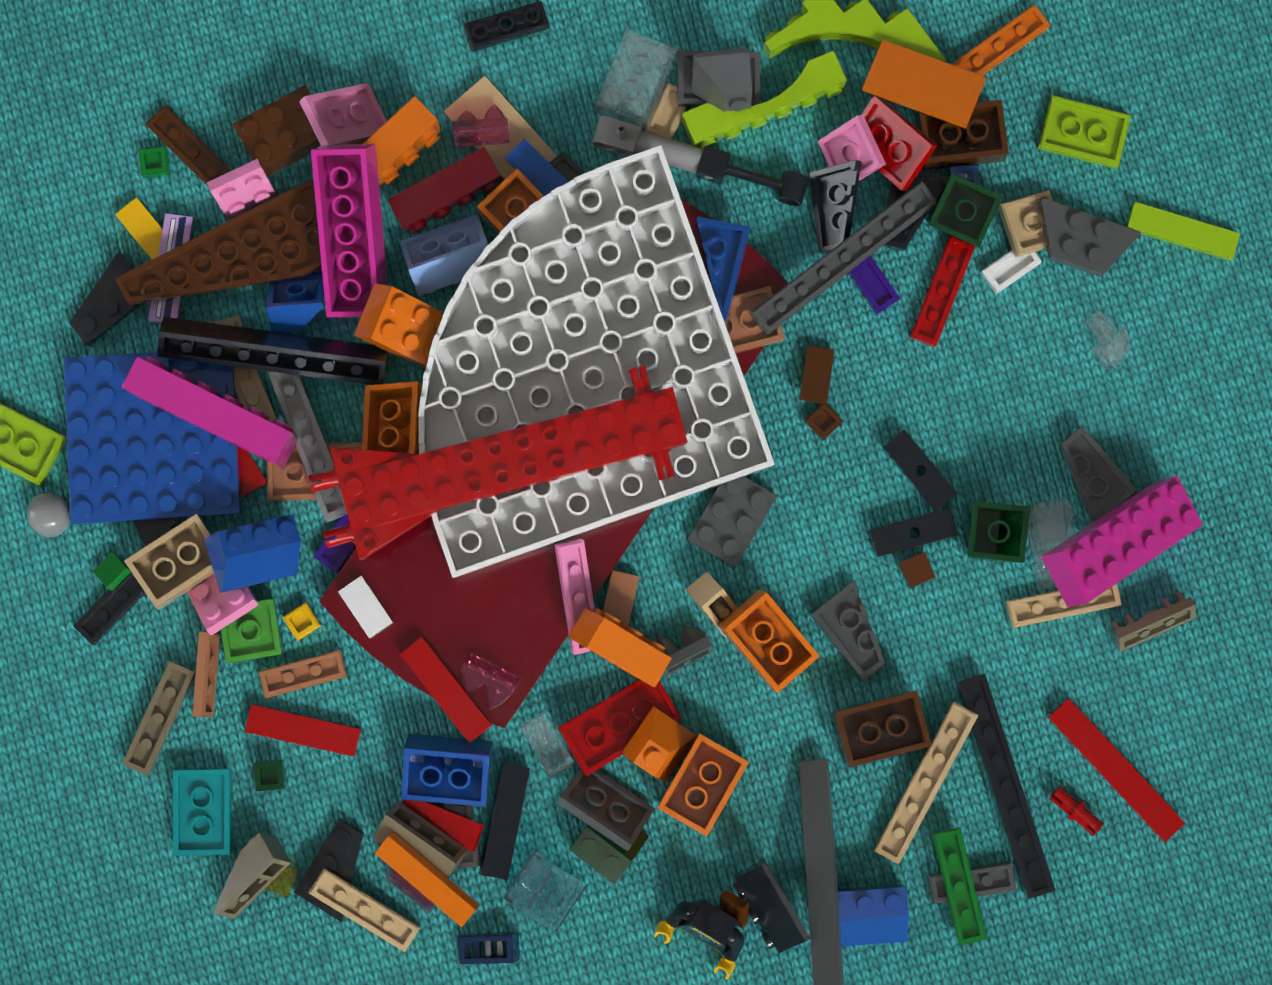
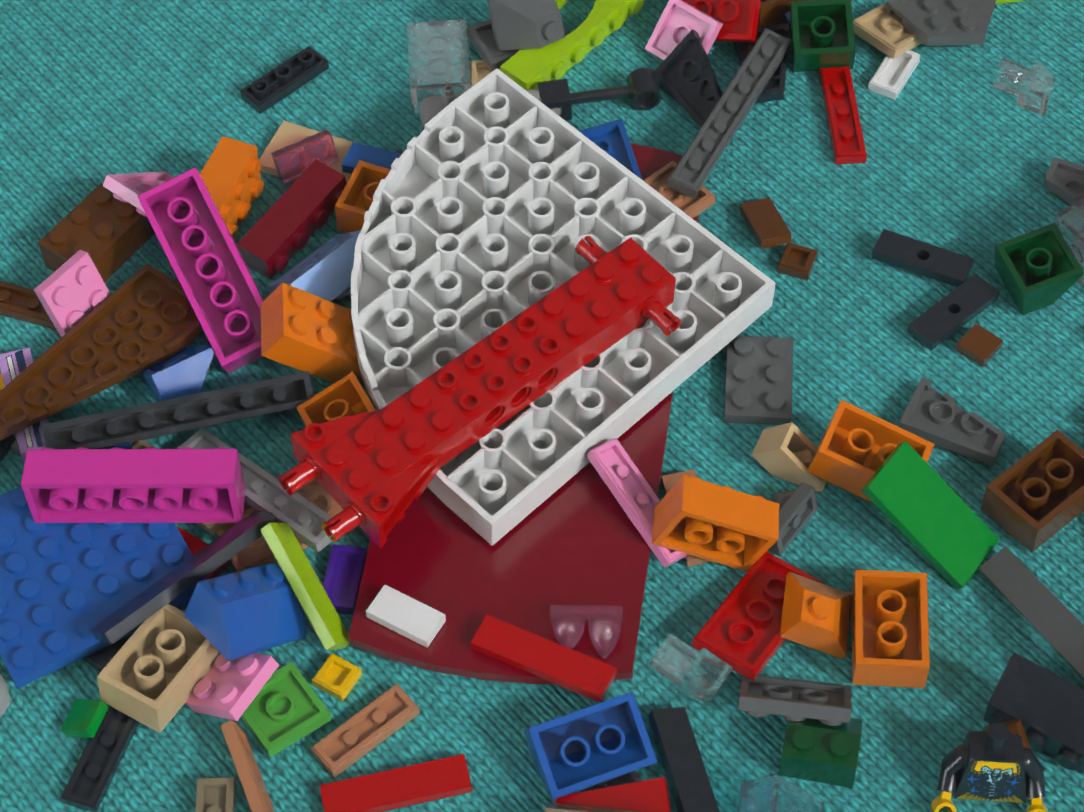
camera: 20 degrees left, 30 degrees down
(219, 503) = (182, 578): none -> black tile
(306, 546) = (306, 585): none -> lime tile
(782, 712) = (930, 515): none -> green tile
(873, 285) = (771, 135): dark purple tile -> none

